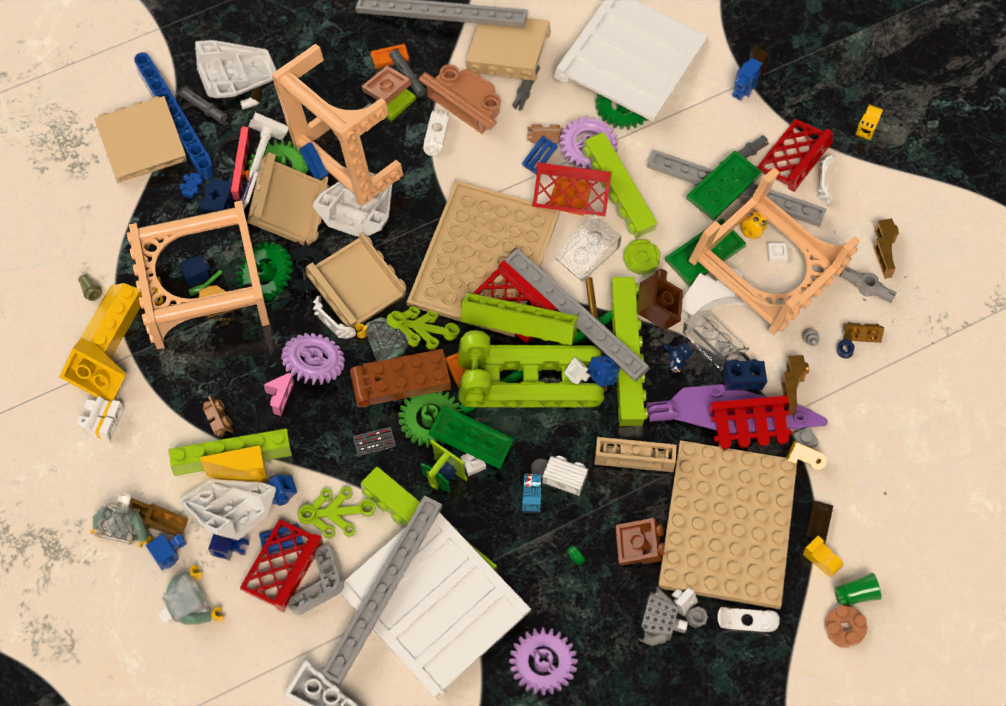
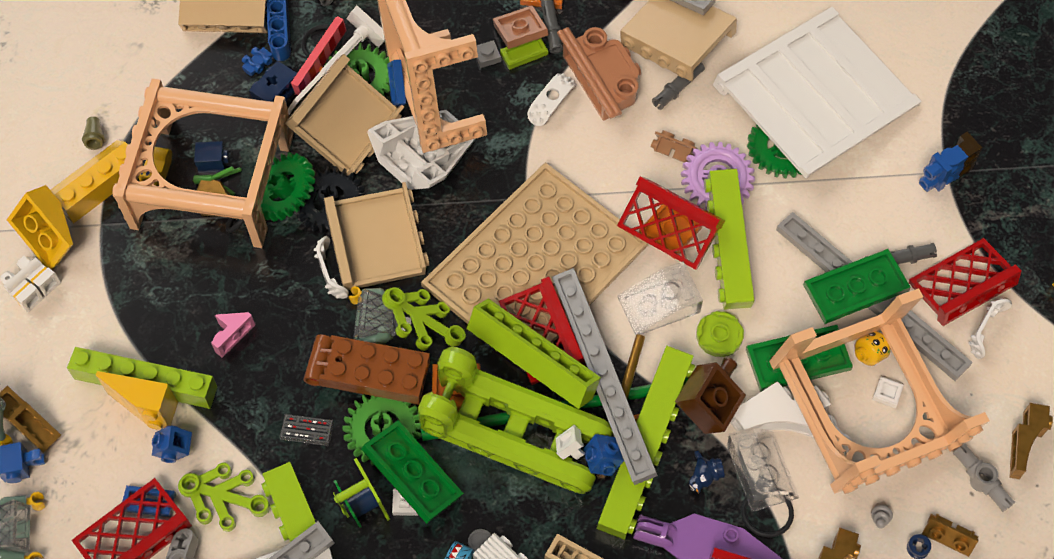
camera: 25 degrees right, 0 degrees up
(215, 409) = (153, 323): medium nougat hinge -> none
(224, 547) = (84, 480): clear blue brick -> none
(229, 506) = (103, 441): white wedge -> none
(314, 363) = (283, 316): lavender gear -> none
(548, 143) = (636, 172): blue tile -> none
(745, 379) = (773, 535): dark blue brick -> none

